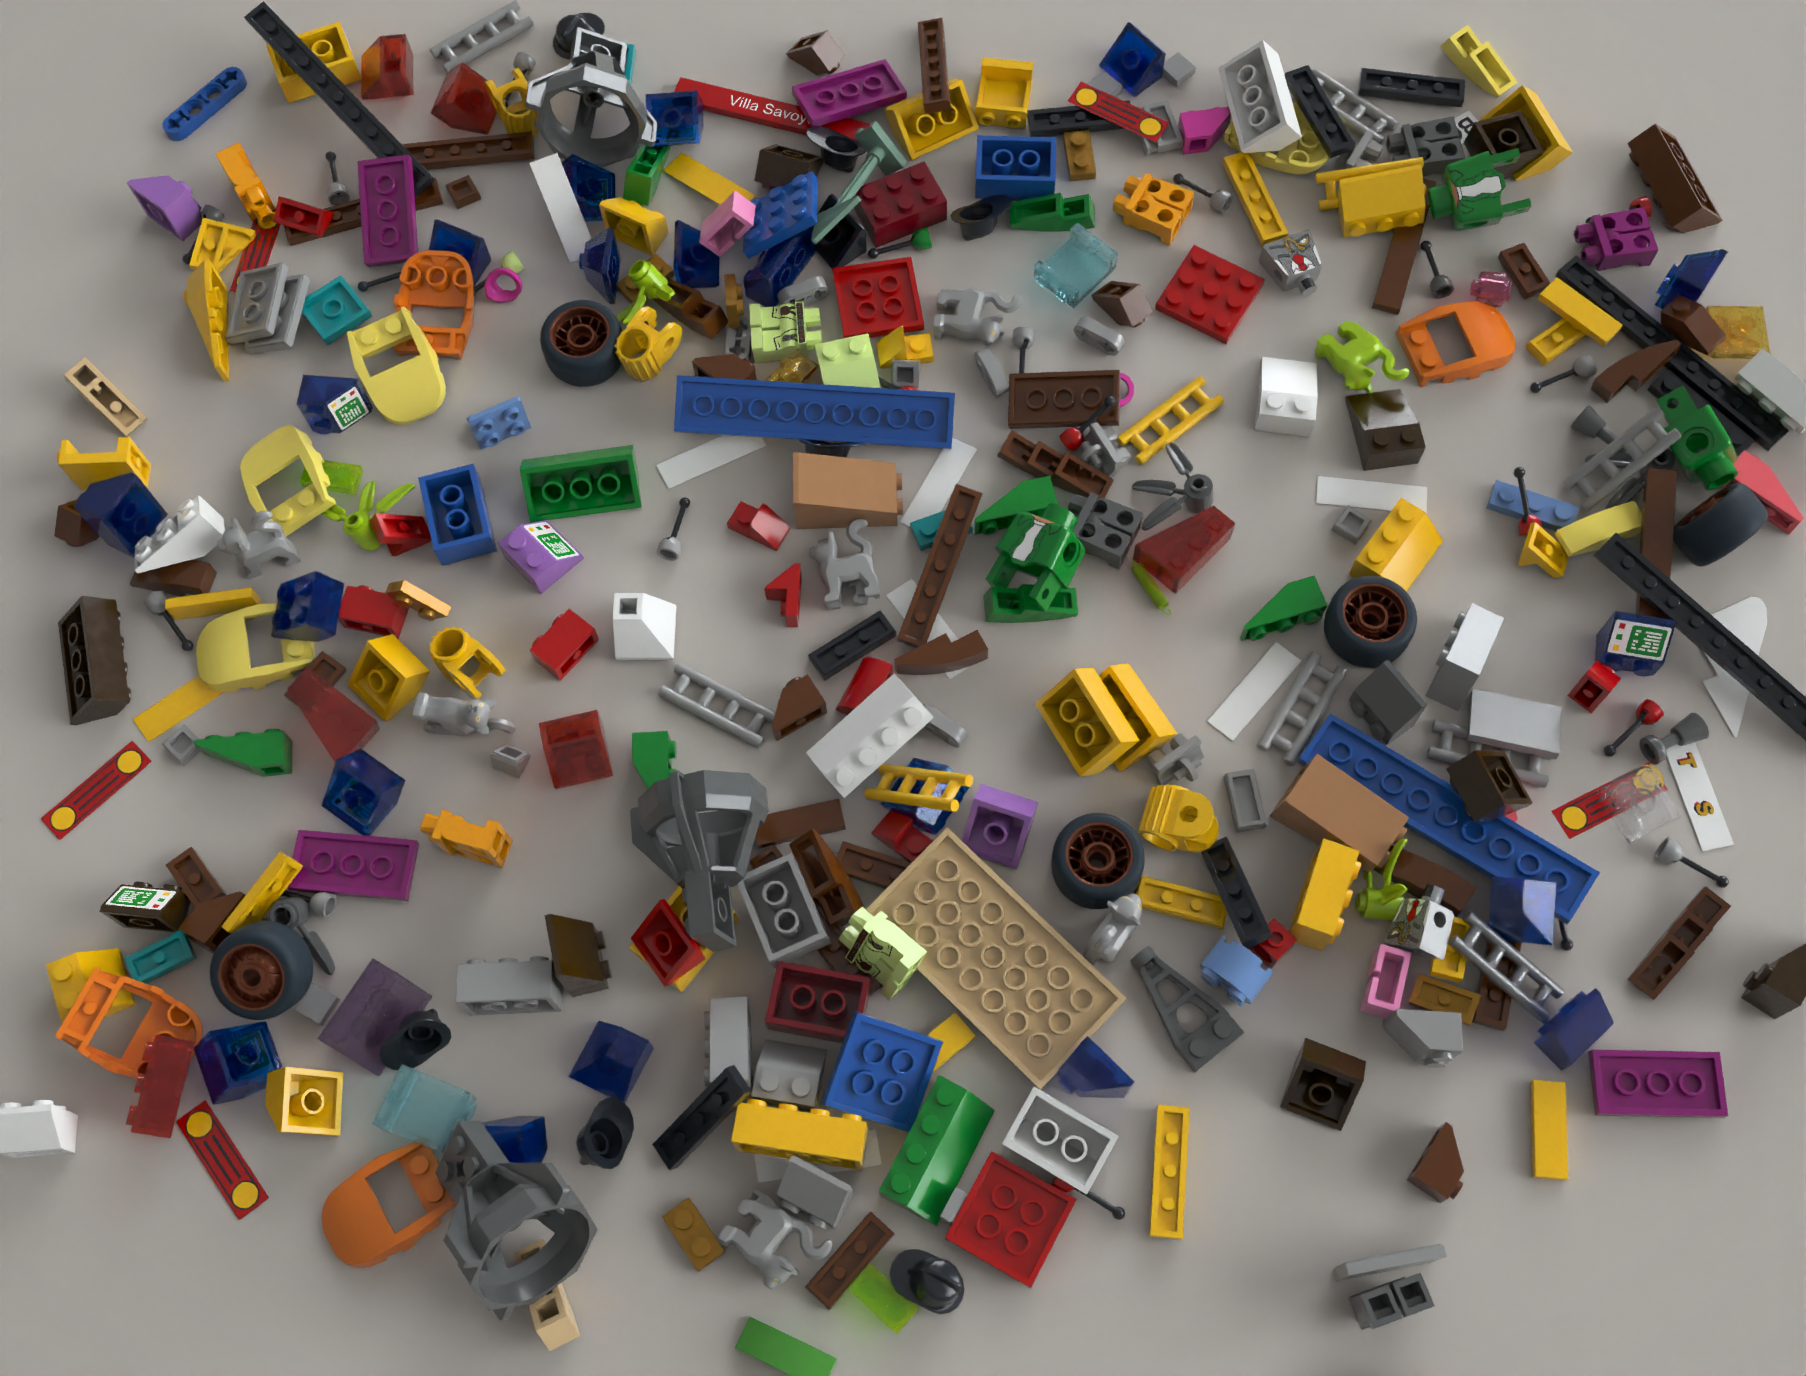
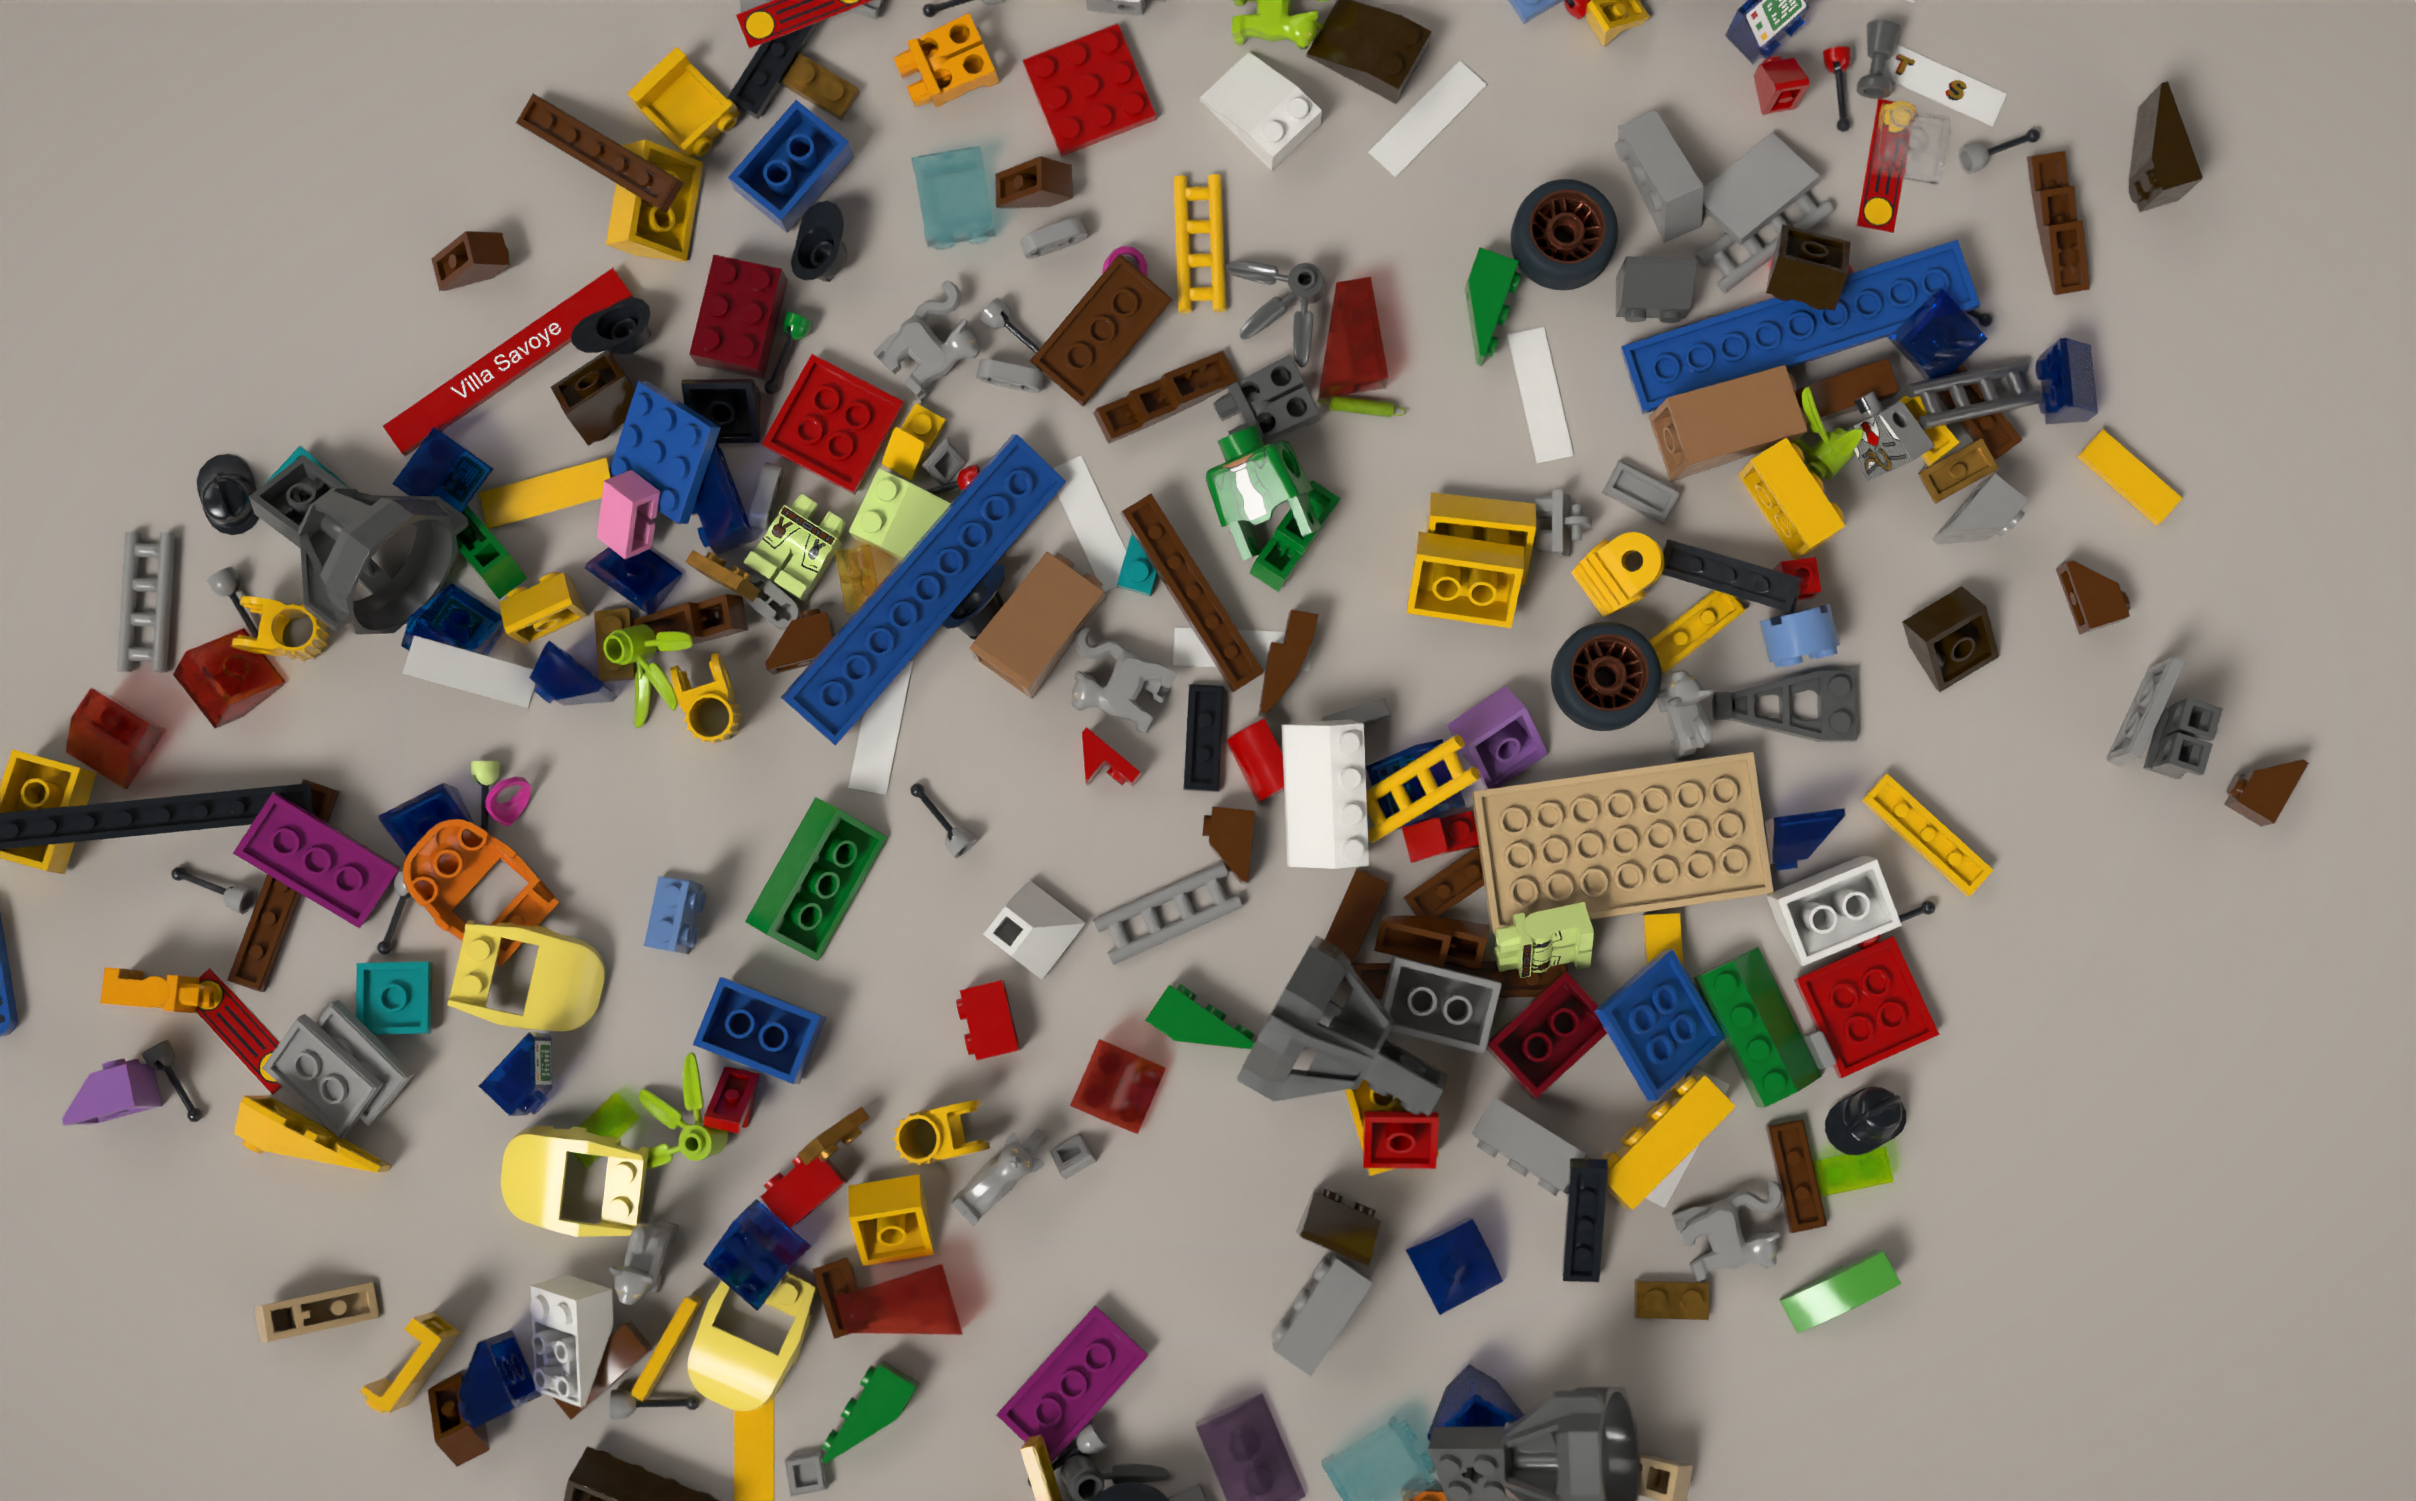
camera: 55 degrees left, 15 degrees up
(219, 243) = (207, 1071): yellow wing -> none
(302, 216) = (243, 955): red slope -> none
(362, 791) = (1000, 1325): clear blue slope -> none
(417, 1040) = (1302, 1433): black piece -> none
(463, 192) = (344, 760): reddish brown tile -> none
(471, 841) = (1133, 1257): light orange hips -> none
(473, 150) = (298, 718): reddish brown plate -> none
(539, 553) = (866, 974): medium lavender slope -> none
(581, 342) = (626, 760): wheel -> none
(606, 1134) = (1528, 1320): black piece -> none
(759, 525) = (1001, 734): red slope -> none
(789, 1075) = (1592, 1108): light grey slope -> none
(813, 1193) = (1721, 1165): light grey slope -> none
(849, 93) = (554, 264): magenta plate -> none
(880, 153) = (718, 395): sand green piece -> none
(1028, 496) = (1186, 453): green slope -> none
(1053, 213) = (873, 169): green slope -> none
(1074, 436) = (1148, 353): hinge -> none
(1101, 452) = (1185, 339): light grey hips -> none
(1307, 725) = (1598, 345): light grey bar -> none
(1351, 525) = (1445, 164): light grey tile -> none
(1386, 981) = (1909, 508): bright pink piece -> none
(1399, 546) = (1506, 146): yellow slope -> none
(1657, 1083) = (2161, 351): magenta plate -> none

